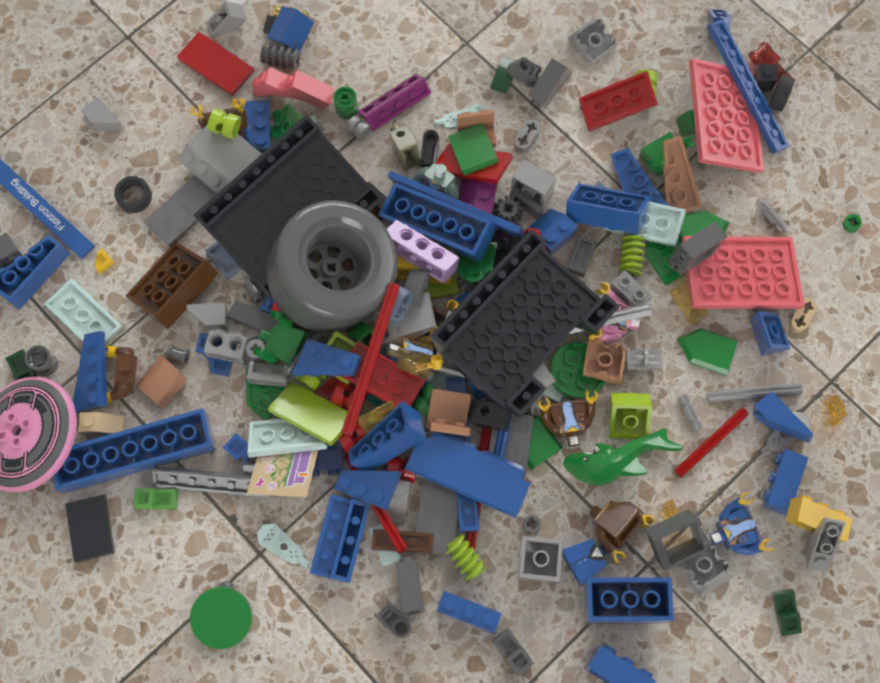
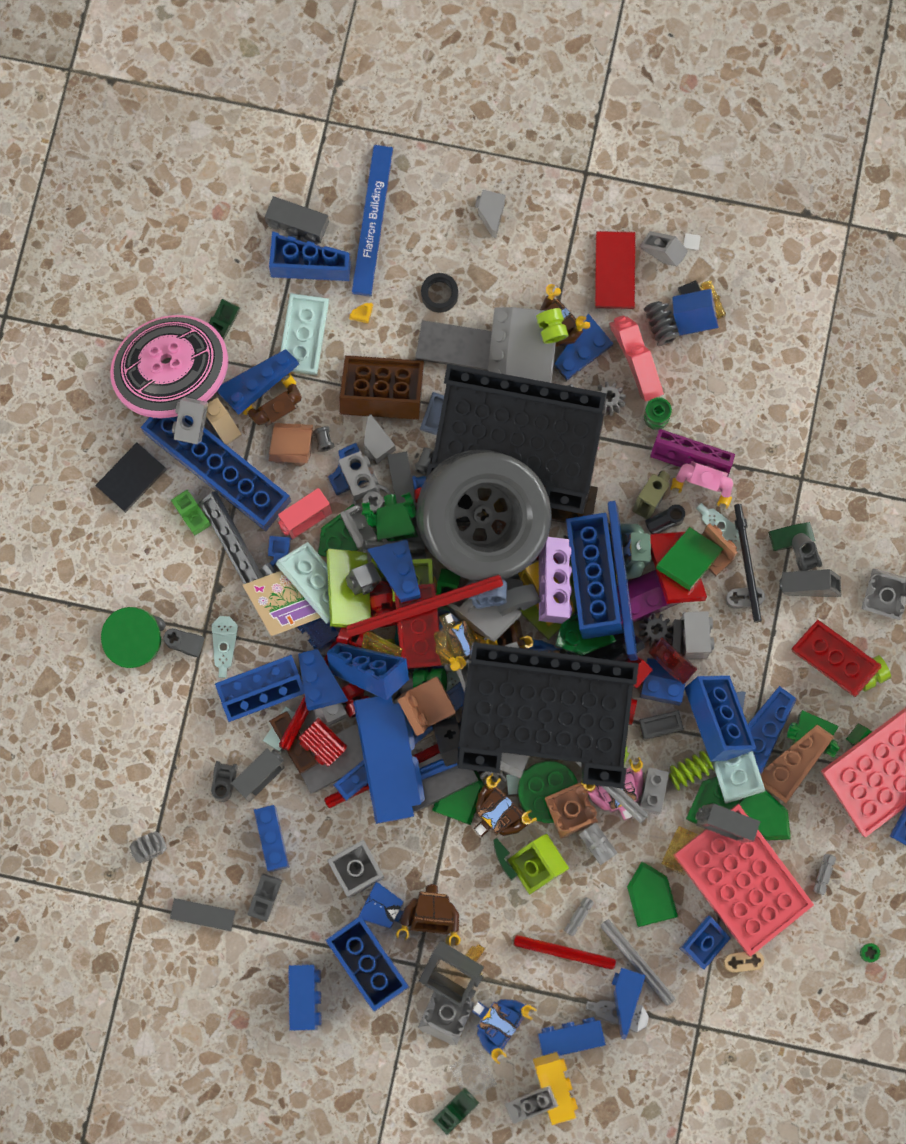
camera: 55 degrees right, 5 degrees up
(41, 360) = (239, 330): dark grey wheel -> none
(79, 431) = (197, 410): none -> light grey brick
(226, 407) = (304, 514): none -> coral window
(260, 572) = (188, 642): none -> dark grey piece
(284, 120) = (598, 376): green tile -> none
(312, 395) = (363, 579): none -> dark grey brick
(357, 128) = (641, 441): light grey wheel -> none
(420, 98) = (707, 478): none -> bright pink torso
(420, 516) = (322, 743): none -> red brick
(465, 557) = (314, 804): lime piece -> none
(471, 101) = (741, 525): none -> black bar
(535, 519) = (390, 842): flat silver bush -> none
(542, 210) = (672, 661): none -> clear red slope
(604, 437) = (501, 854): none -> dark green slope
(609, 464) = (478, 875): green piece -> none
(836, 409) = (672, 1045): clear yellow bracket -> none

